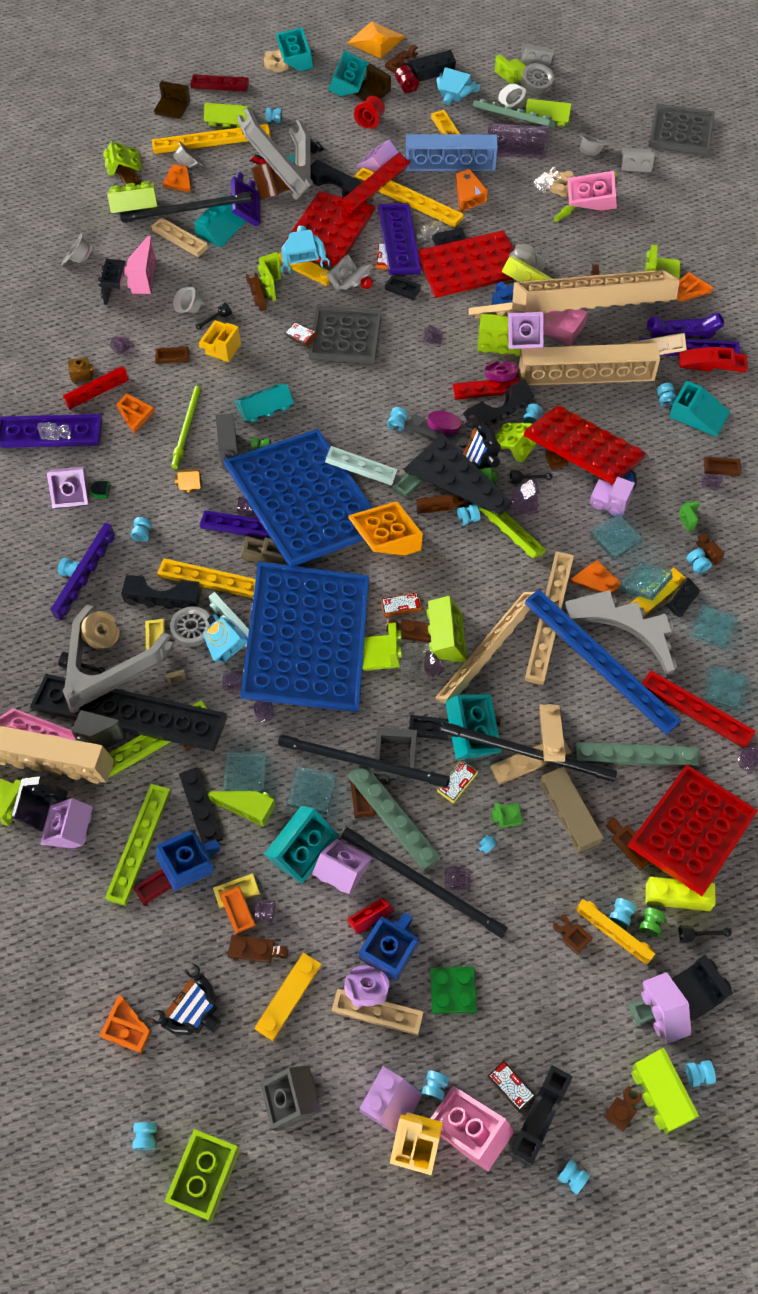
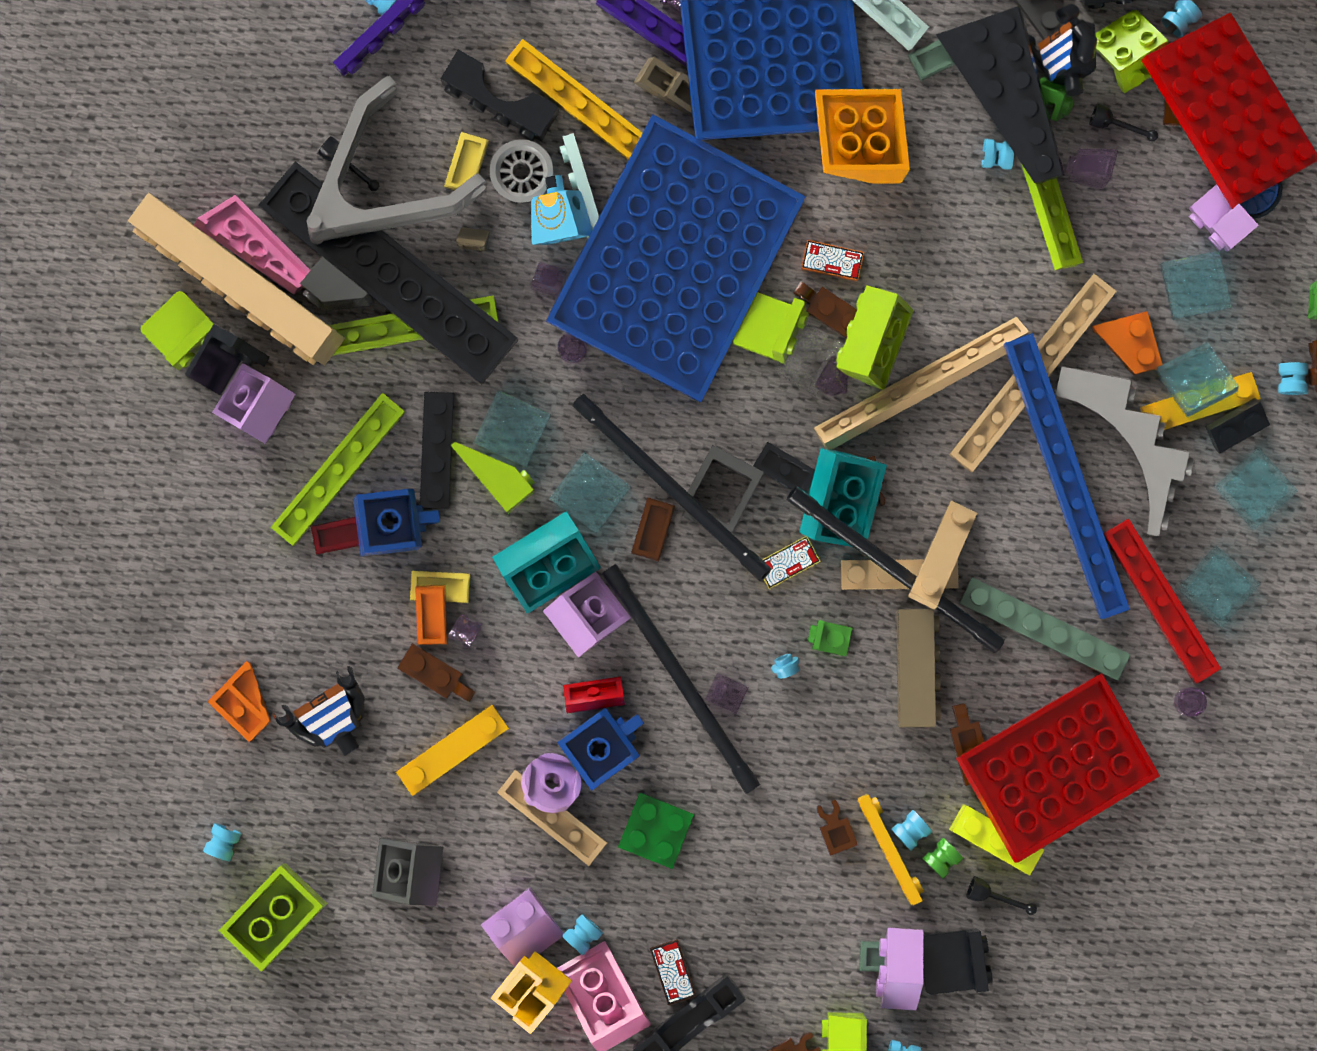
camera: 25 degrees right, 25 degrees up
(93, 637) = (377, 121): tan plate -> none
(394, 817) = (681, 577): sand green plate -> none
(438, 504) = (966, 117): reddish brown plate -> none

